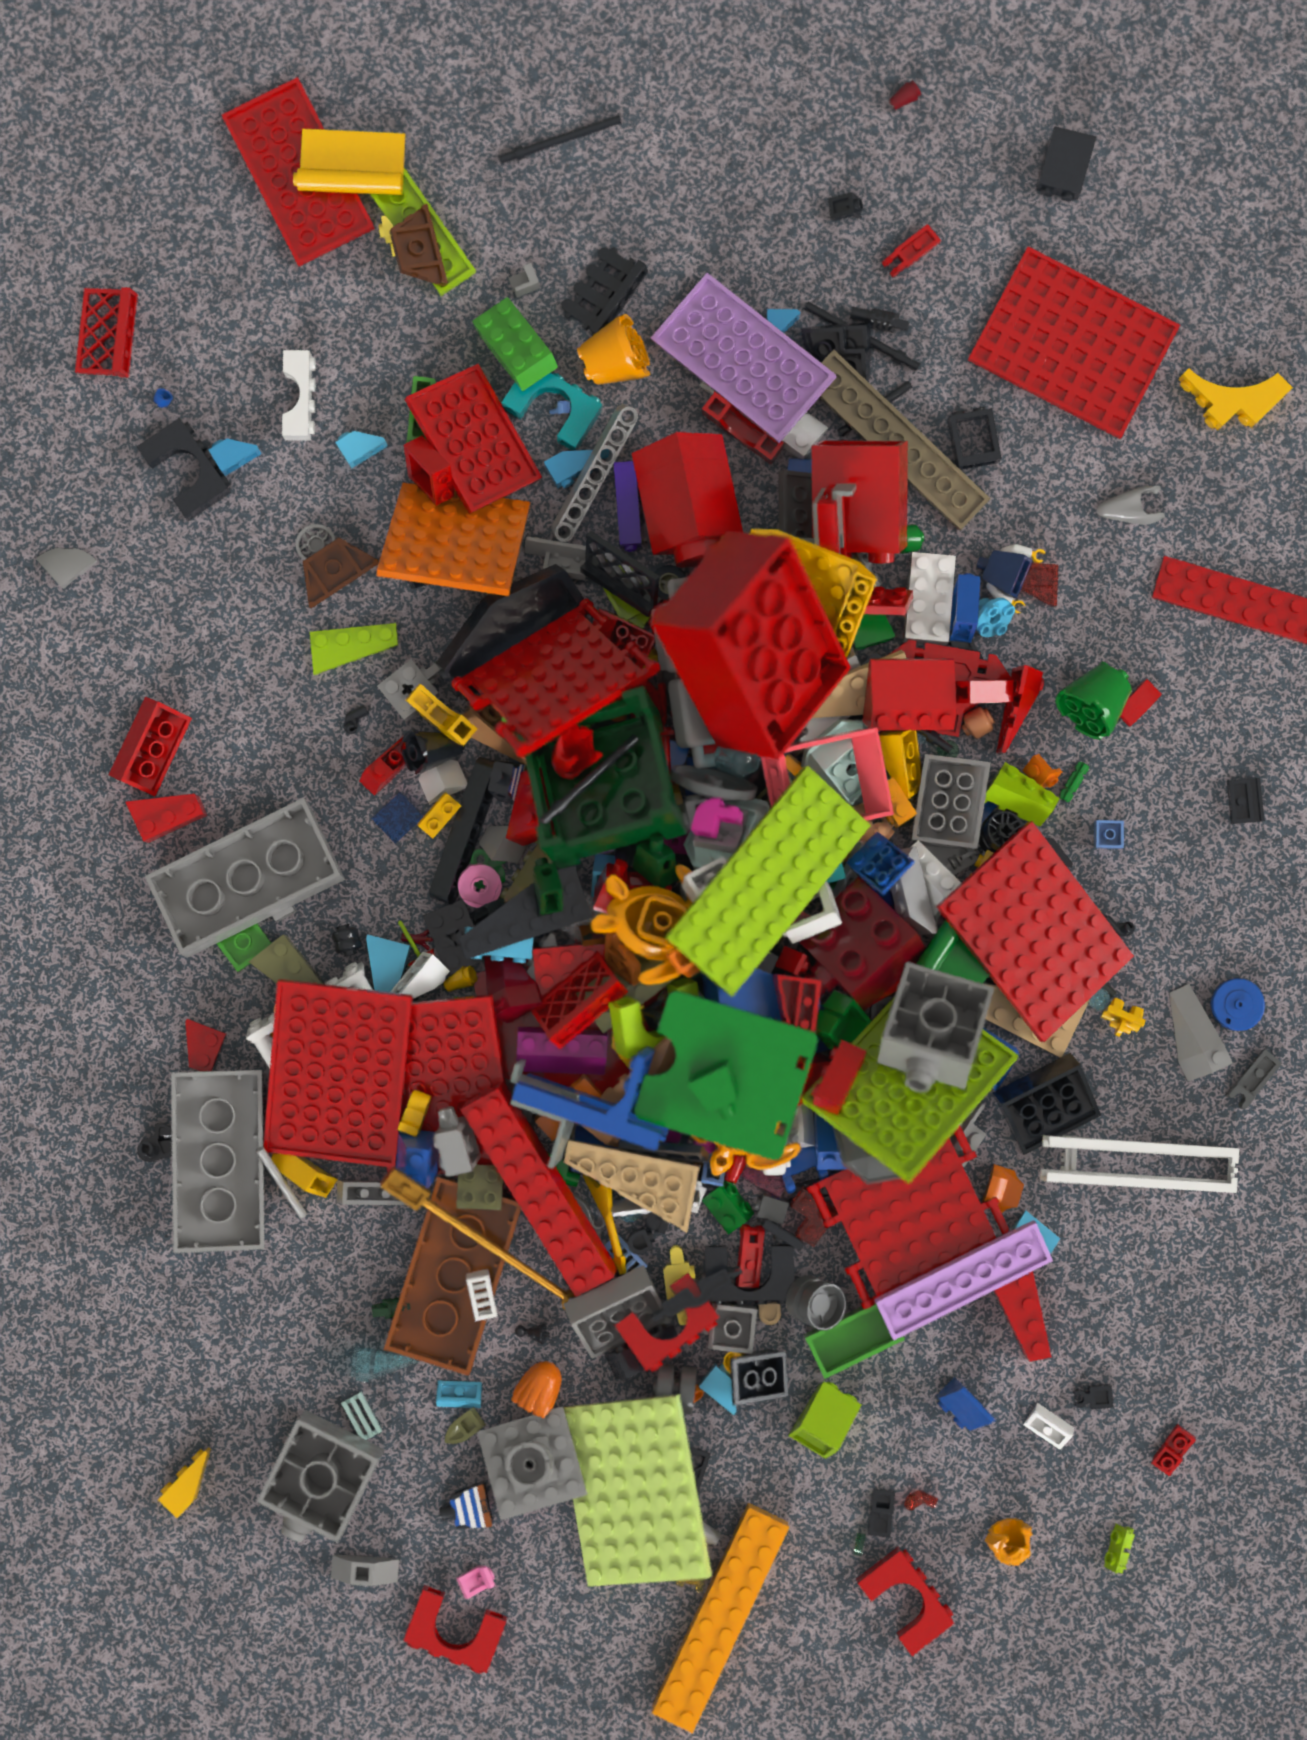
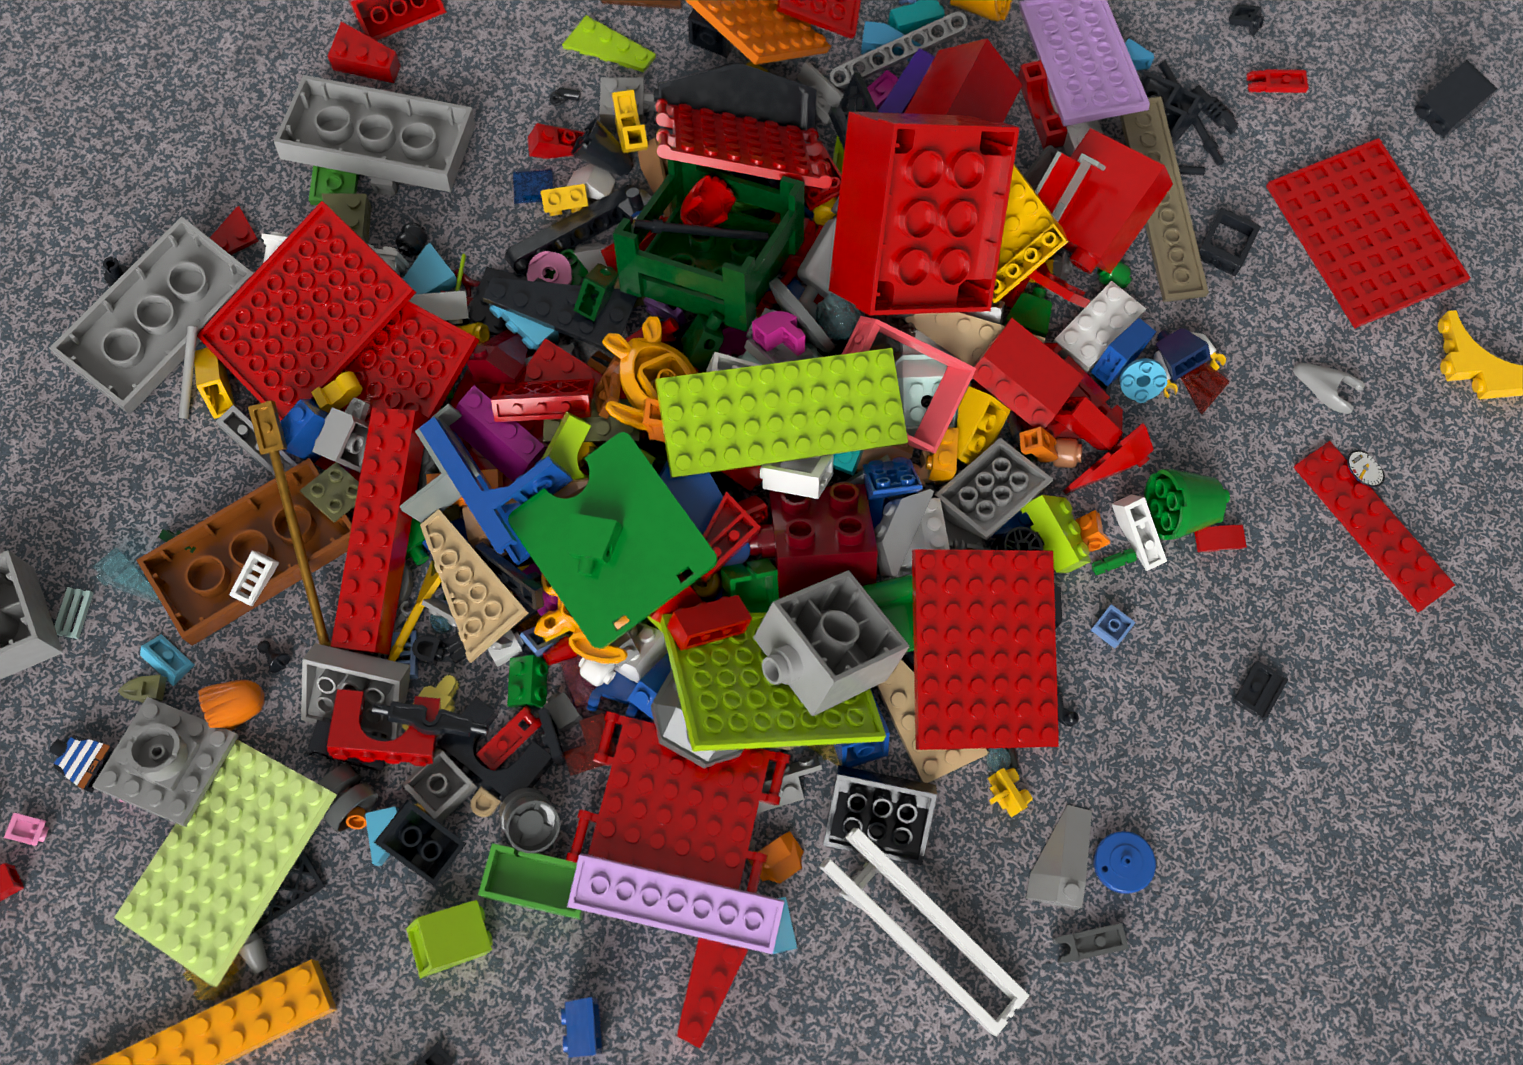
camera: 35 degrees right, 15 degrees down
(603, 514) = (882, 87): none -> dark pink plate
(957, 740) = (1039, 443): none -> orange leg
(1075, 742) = (1140, 530): none -> white slope
(1205, 559) = (1365, 468): none -> white sticker

